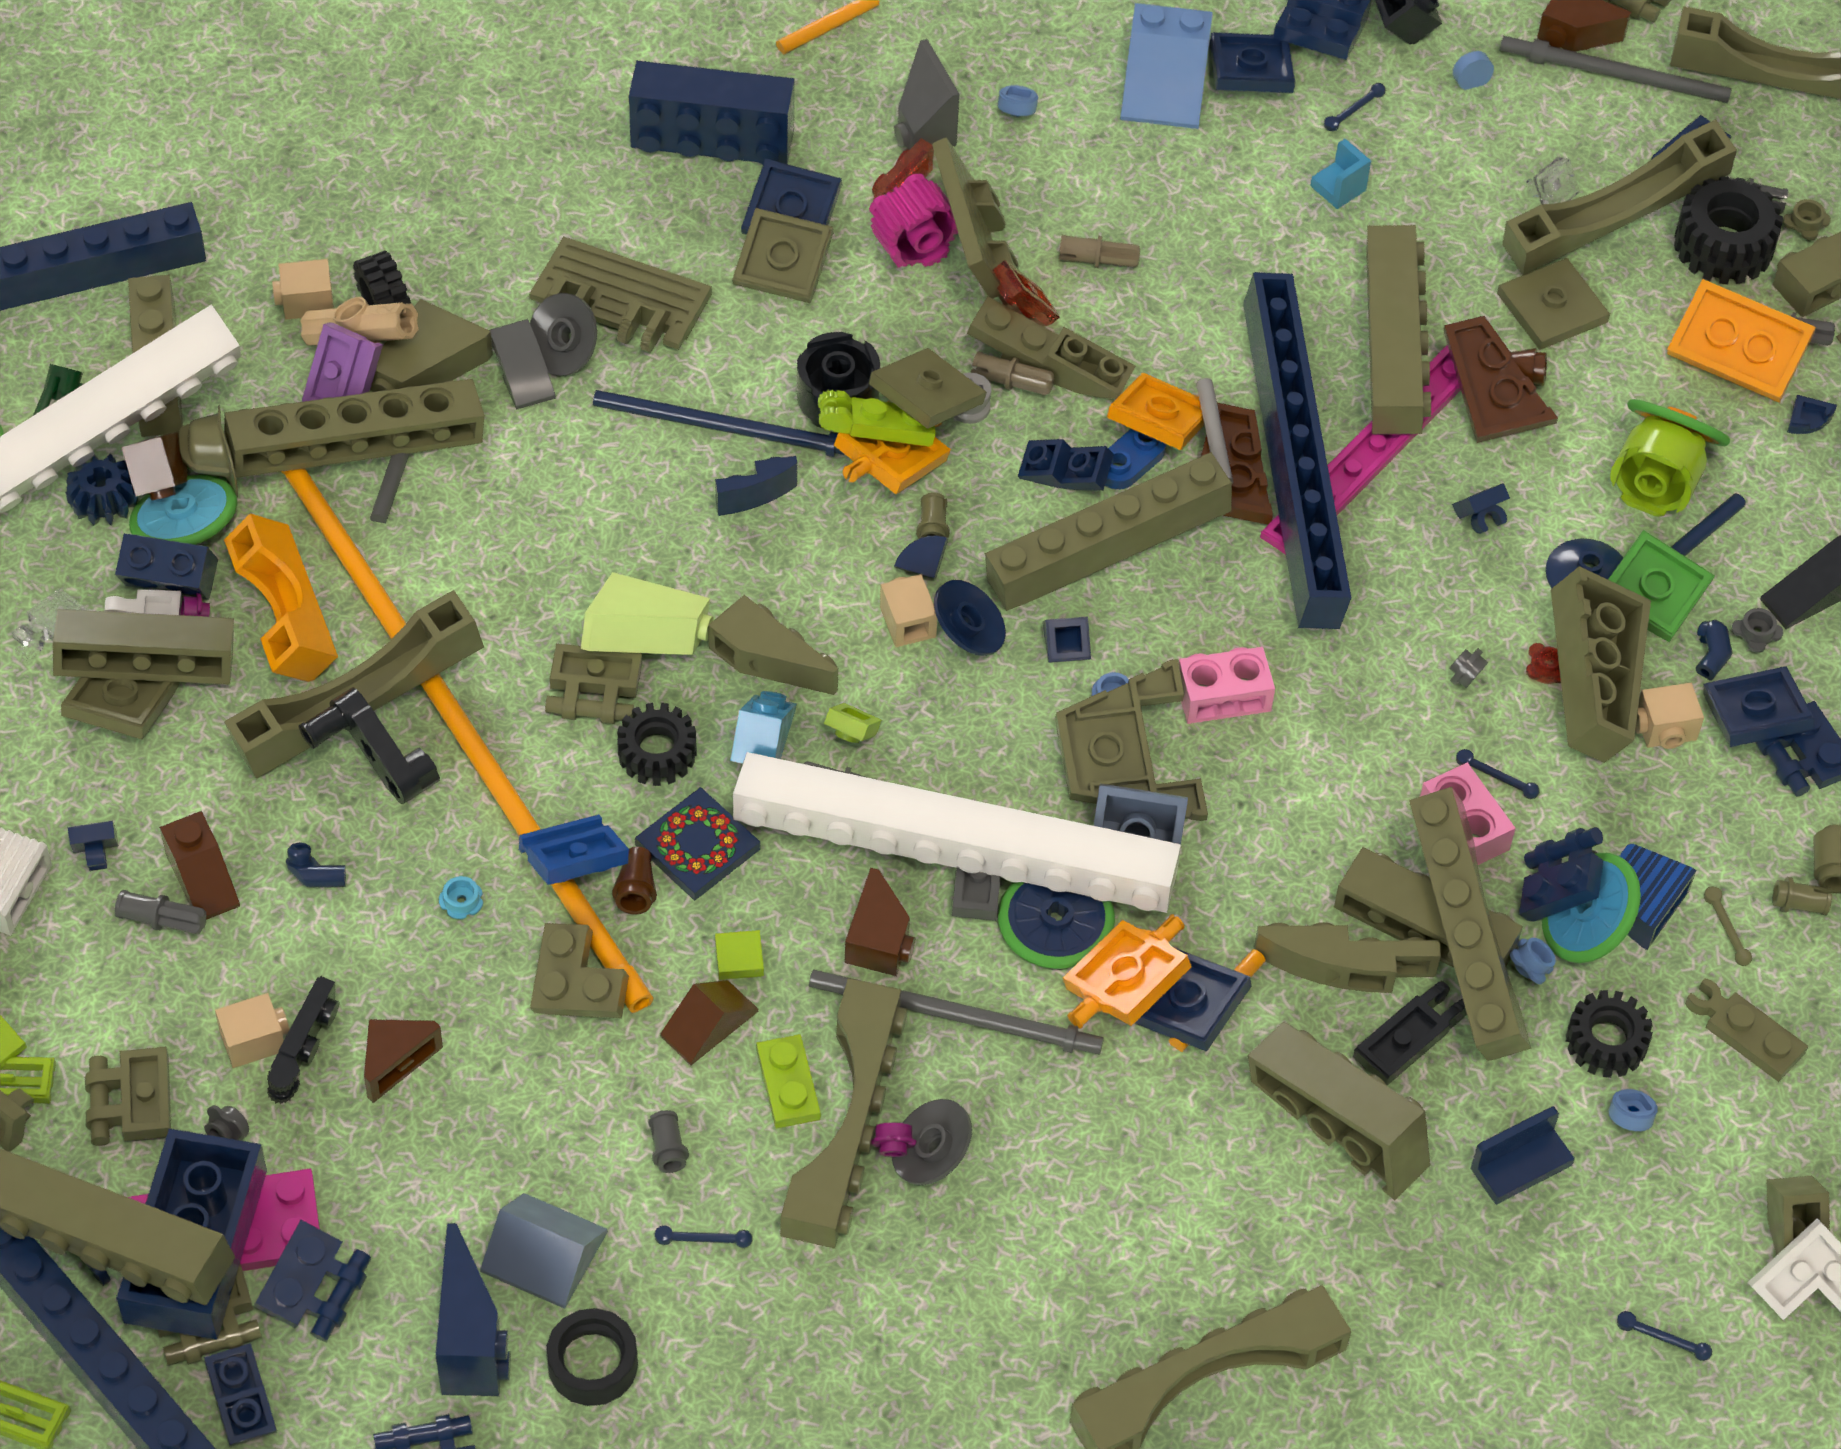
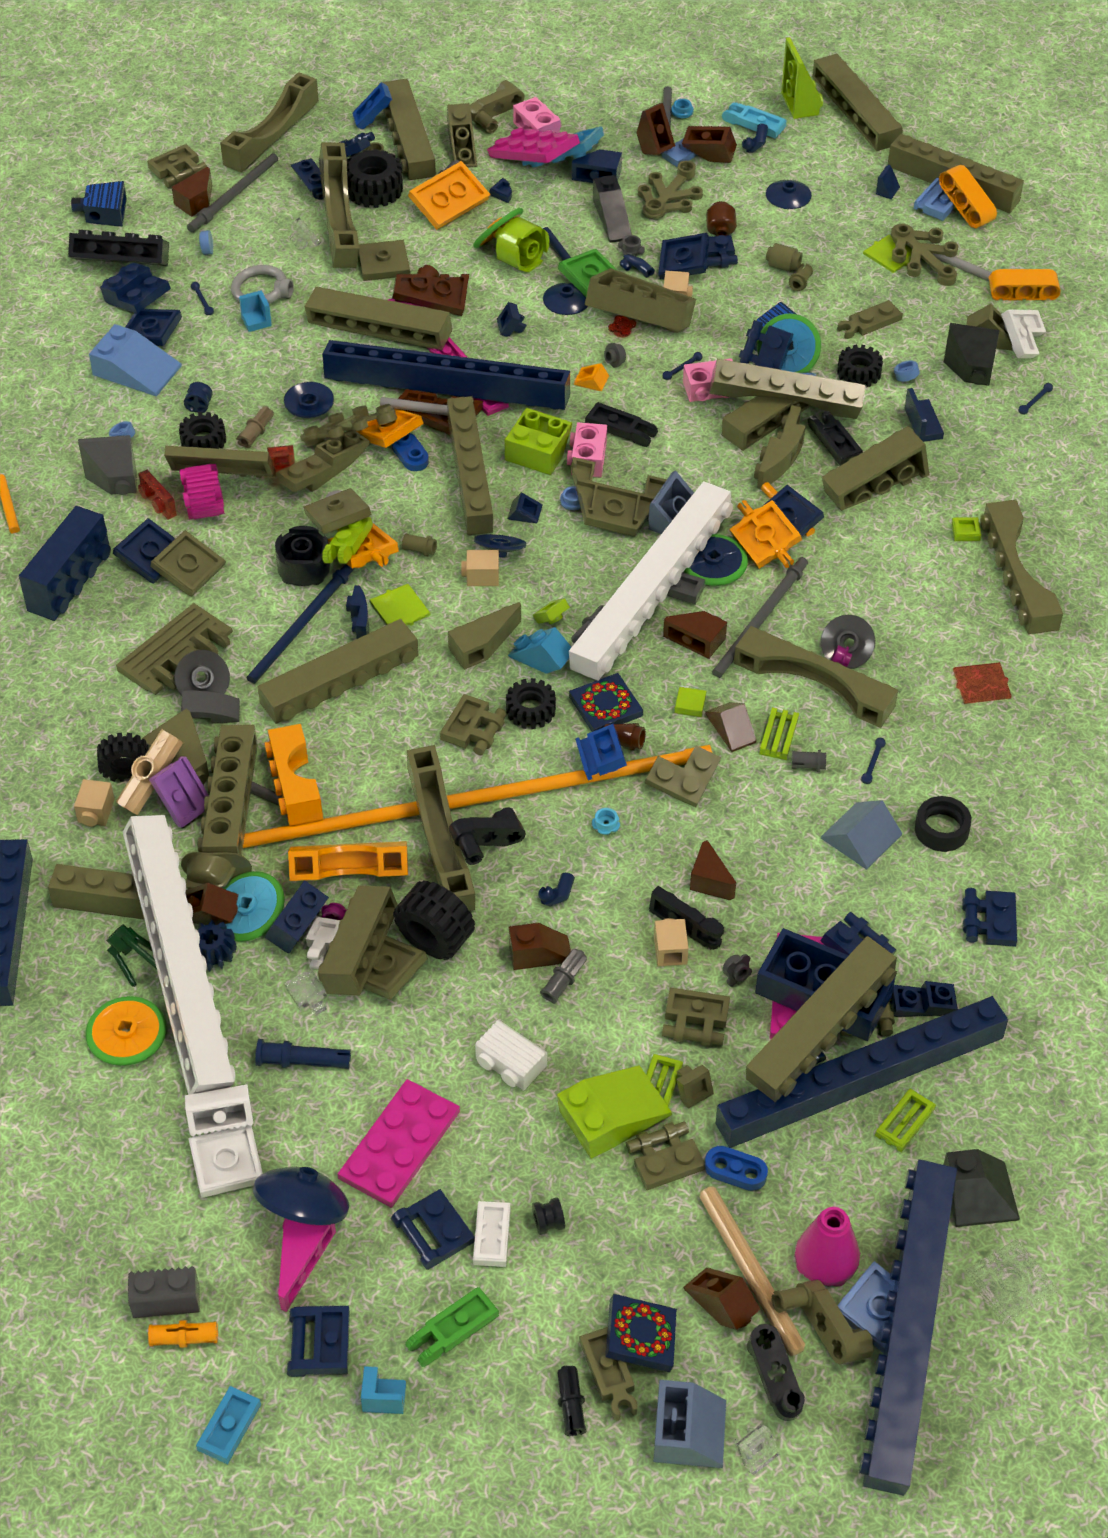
camera: 70 degrees left, 5 degrees down
(93, 841) = (499, 1000): dark blue tile -> none
(186, 718) = (434, 920): none -> black tyre
(460, 472) = (299, 795): none -> light orange arch
(469, 1343) = (910, 866): dark blue slope -> none
(637, 492) = (338, 671): none -> olive brick
(645, 618) = (440, 685): yellowish green slope -> none
(710, 1084) = (784, 716): none -> lime tile
(788, 1081) = (784, 698): lime plate -> none
(802, 534) = (400, 604): none -> lime piece
(923, 556) = (444, 554): dark blue tile -> none
(929, 1368) = (982, 683): none -> clear red piece
(1013, 373) = (328, 483): dark tan axle -> none
(1052, 176) = (199, 424): none -> black tyre
(1066, 467) = (407, 478): dark blue slope -> none
(1124, 164) = (198, 397): none -> dark blue wheel
(1145, 352) = (337, 423): none -> olive plant
(1178, 284) = (308, 399): none -> dark blue dish
(1210, 607) = (537, 441): none -> lime slope
(1277, 1277) = (966, 529): none -> lime tile
(1310, 712) = (622, 424): none -> black hinge
(1408, 654) = (592, 377): none -> light orange slope
(1417, 193) = (282, 287): none -> light grey piece
(1702, 1202) = (971, 352): none -> pearl dark grey slope
(1713, 896) = (825, 310): olive hinge -> none
(1782, 178) = (358, 143): none -> dark blue plate

